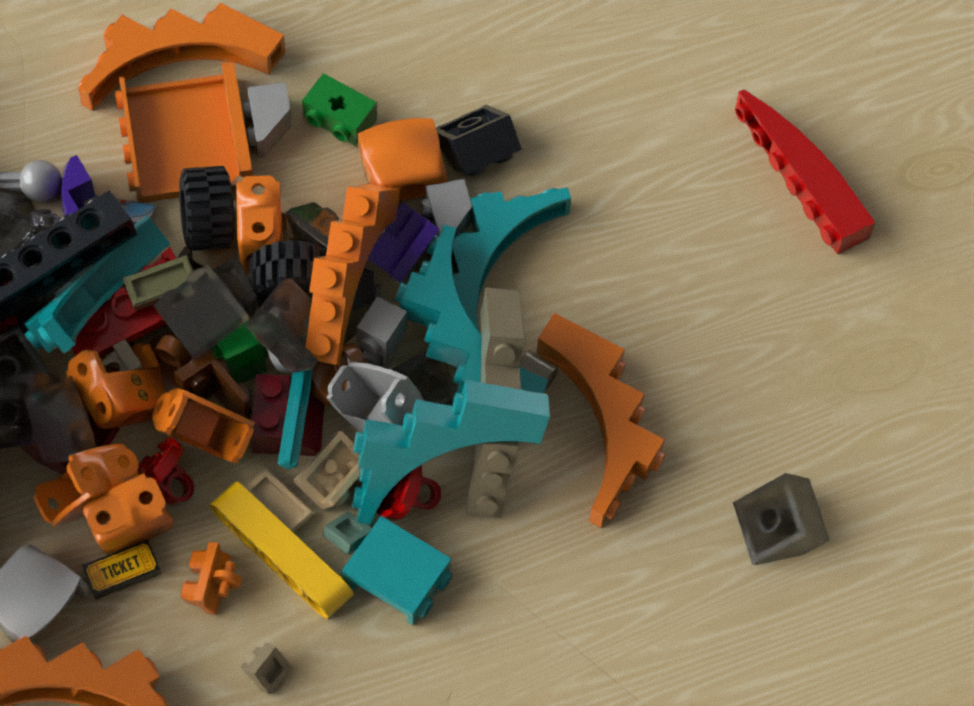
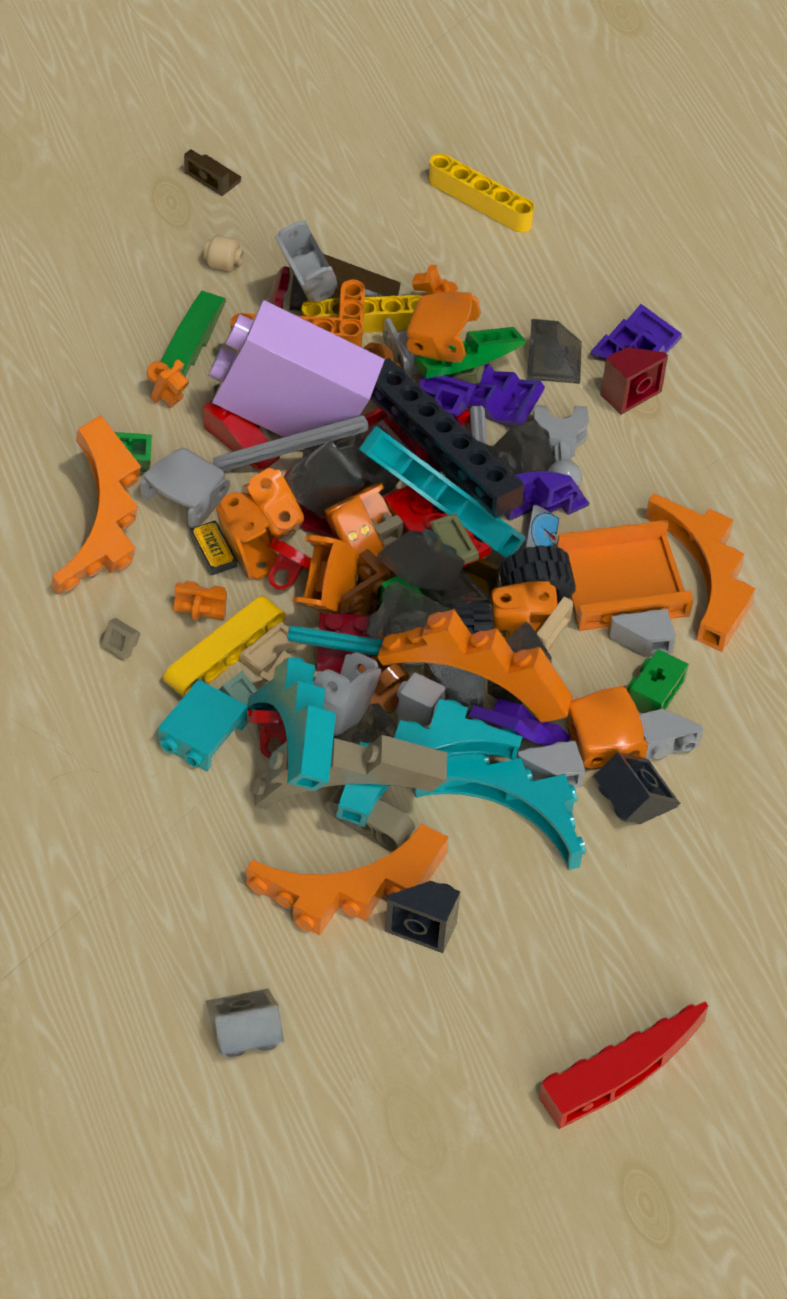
camera: 90 degrees right, 10 degrees down
(405, 99) = (669, 733): none -> light grey slope
(652, 333) = (424, 914): none -> black slope

